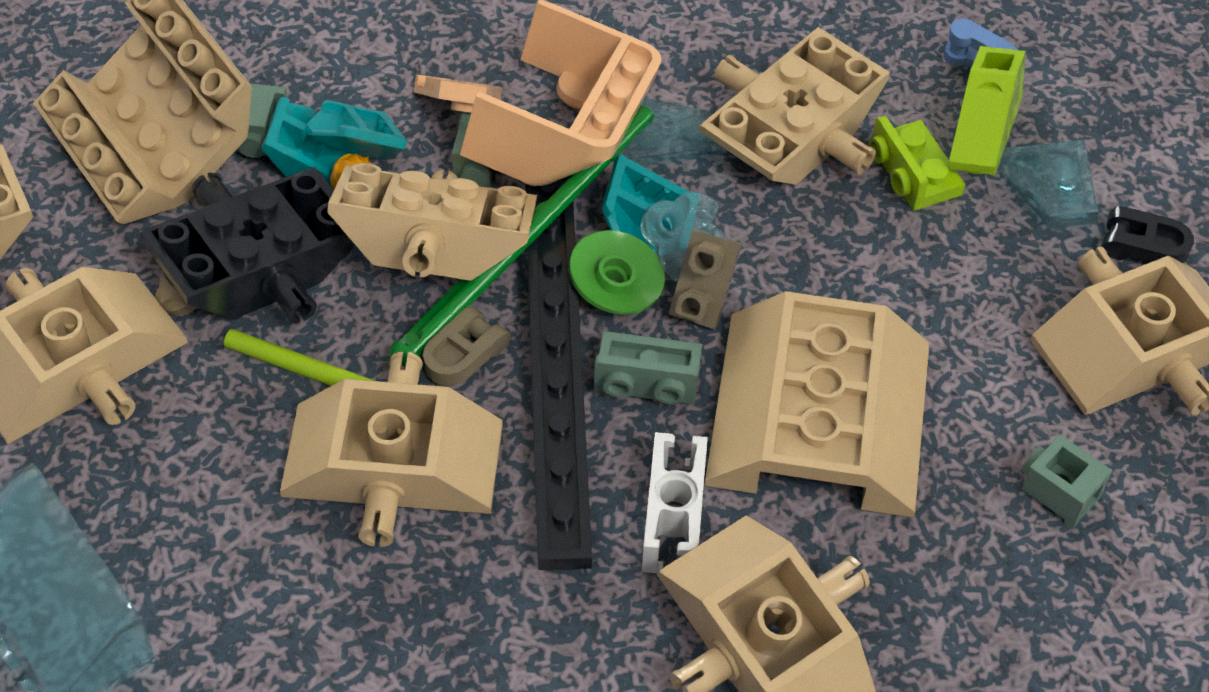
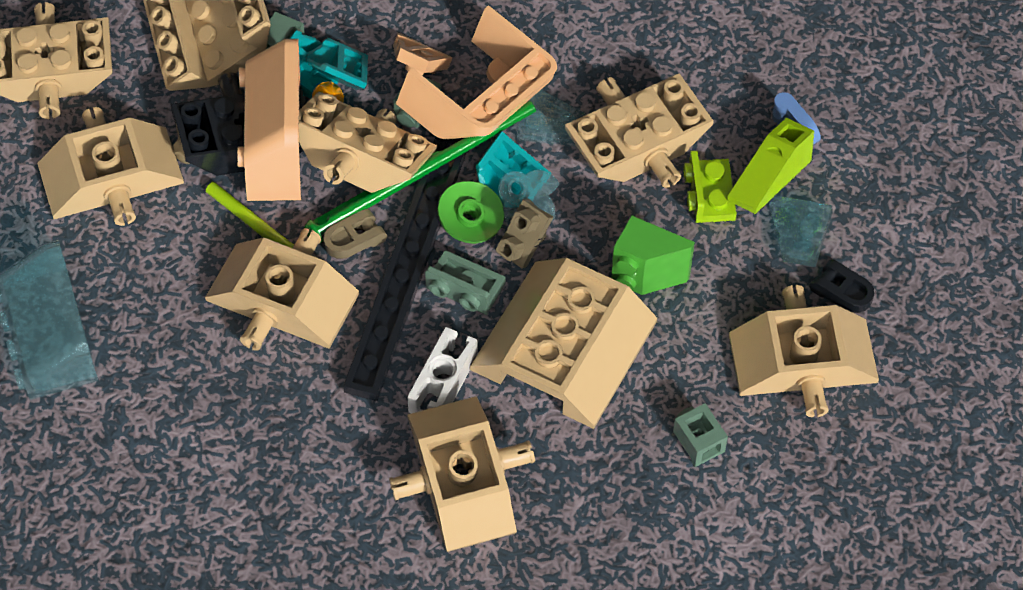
camera: 20 degrees right, 5 degrees up
(305, 216) = (272, 123): none -> light nougat windscreen
(895, 258) = (651, 257): none -> bright green slope

